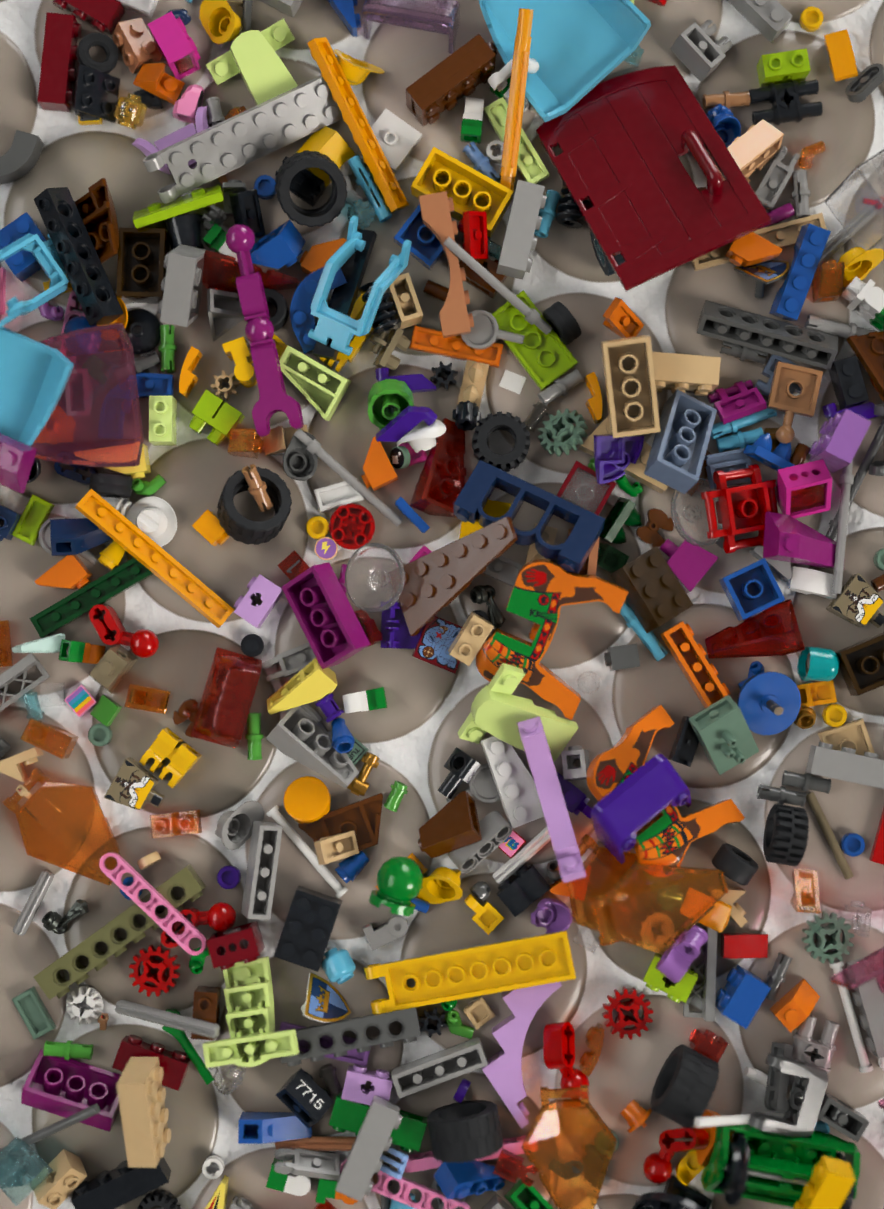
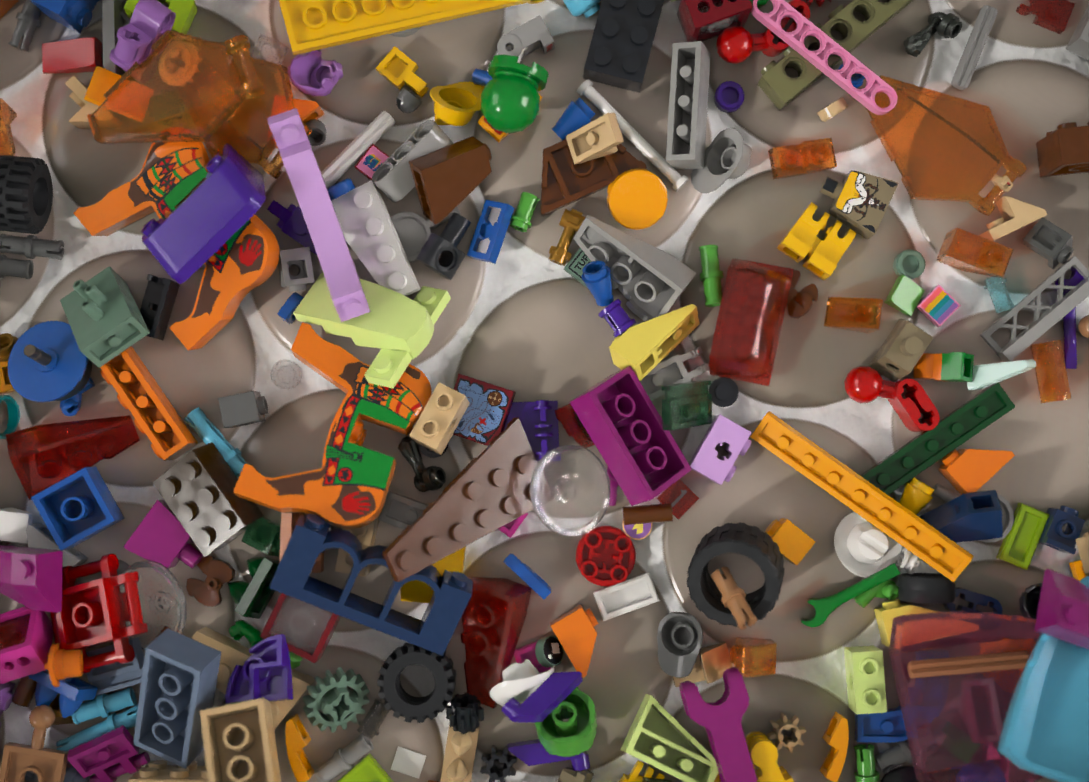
camera: 175 degrees right, 0 degrees up
(52, 694) = (975, 311): clear tile -> none
(87, 426) = (967, 664): none -> nougat axle
(185, 478) = (826, 605): none -> green piece
(217, 414) = (794, 692): lime hips -> none
(281, 636) = (686, 405): none -> clear green plate
(313, 447) = (662, 657): light grey bar -> none
(317, 527) = (650, 551): yellow tile -> none
(317, 555) = (647, 514): none -> reddish brown axle
(365, 700) = (572, 330): leg -> none
(422, 782) = (490, 231): none -> blue piece
(523, 889) = (354, 105): black brick -> none
(536, 824) = (341, 188): none -> blue tile
(582, 731) = (289, 307): none -> blue tile
(735, 864) = (85, 154): black tyre -> none
(763, 472) = (63, 664): none -> orange piece

